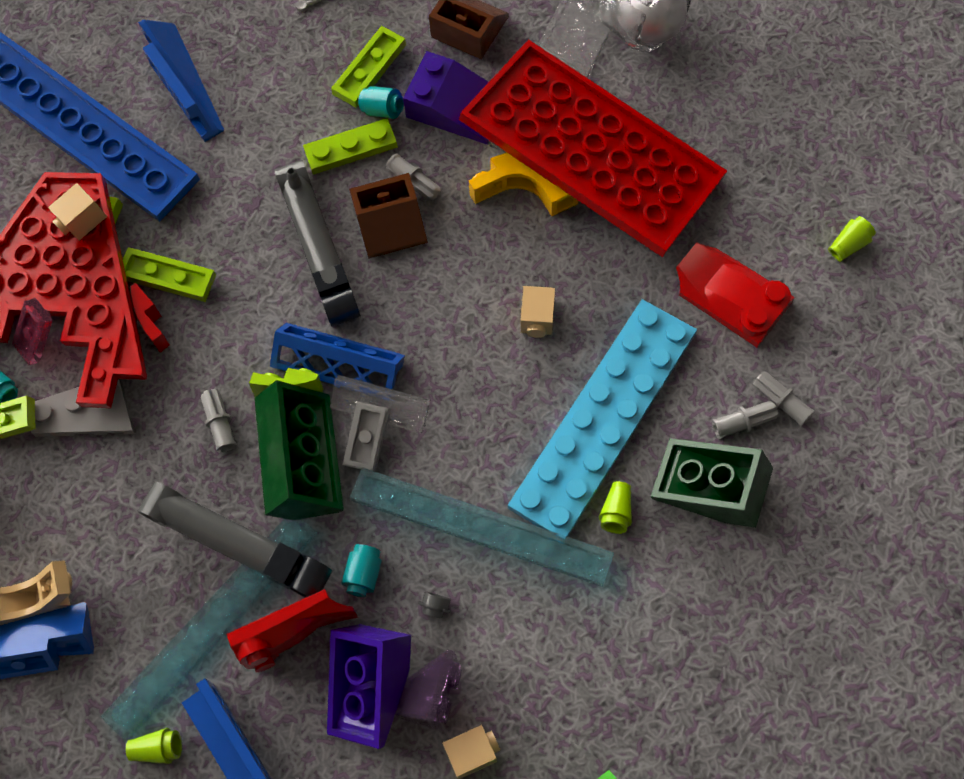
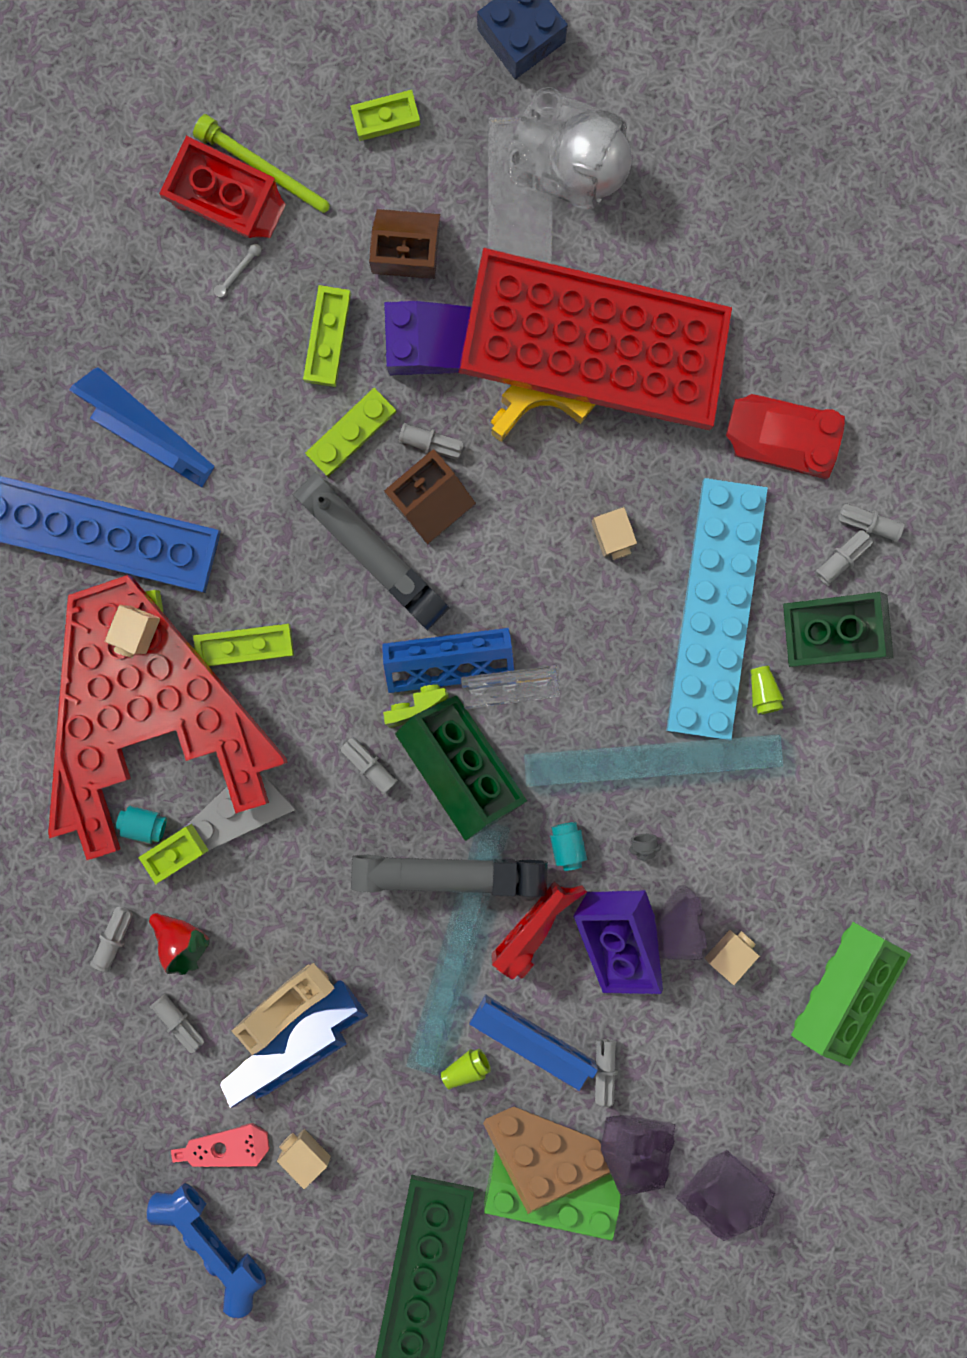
camera: 30 degrees left, 20 degrees up
(32, 331) = (153, 761): clear pink plate -> none
(147, 315) = (245, 693): red slope -> none
(366, 436) = (513, 723): light grey plate -> none
(381, 102) = (361, 373): teal brick -> none
(852, 238) = (875, 331): lime cone -> none

